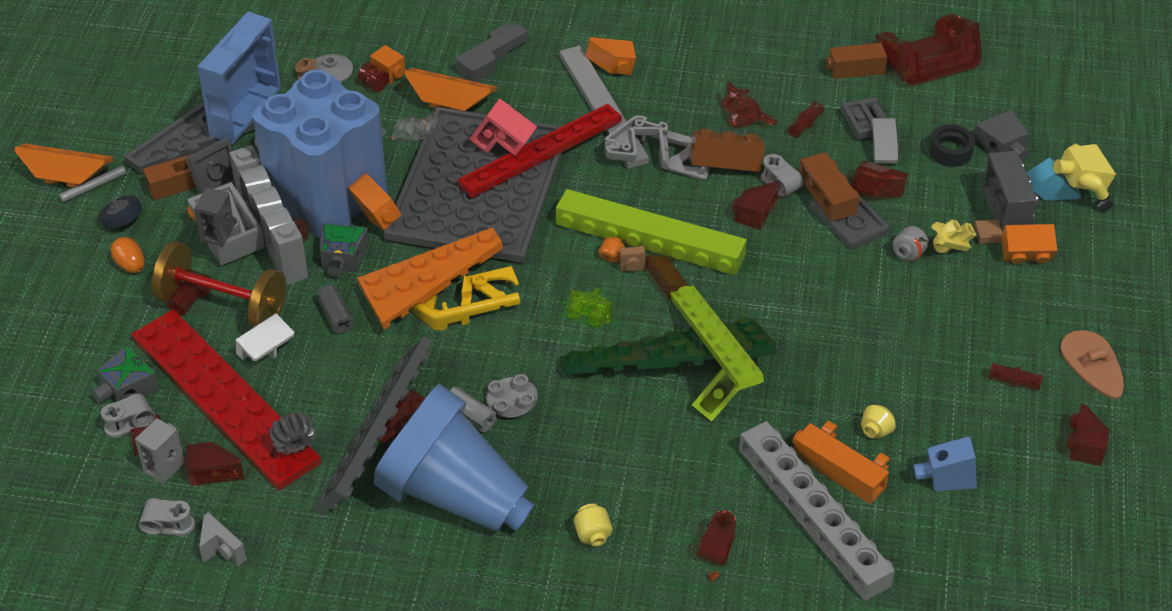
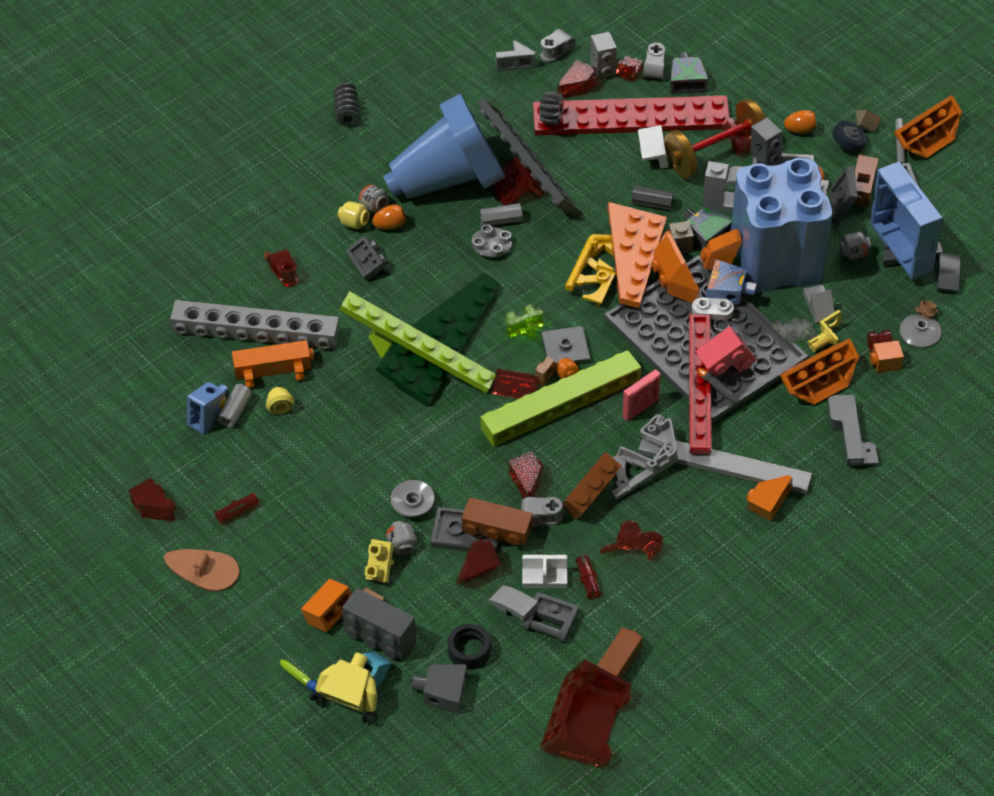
camera: 130 degrees right, 5 degrees up
(82, 213) = (867, 120): none -> dark tan slope
(373, 254) = (682, 235): none -> dark tan brick
(399, 109) = (827, 335): none -> light yellow bracket
(411, 183) = (729, 283): none -> medium blue torso
(424, 226) = (673, 270): none -> orange wedge
(446, 185) = (717, 308): none -> white plate
(536, 135) = (707, 376): none -> dark grey piece
(552, 525) = (373, 198): none -> light grey head
(565, 493) = (389, 217): none -> orange animal
(585, 268) = (566, 344): none -> plate
(597, 171) = (641, 395): none -> coral tile
(635, 476) = (367, 257): none -> dark grey bracket
(833, 143) = (544, 571): none -> white panel
(865, 260) = (412, 491): none -> light grey dish
(907, 456) = (234, 406): none -> light grey axle
(1099, 216) = (298, 674): none -> lime piece

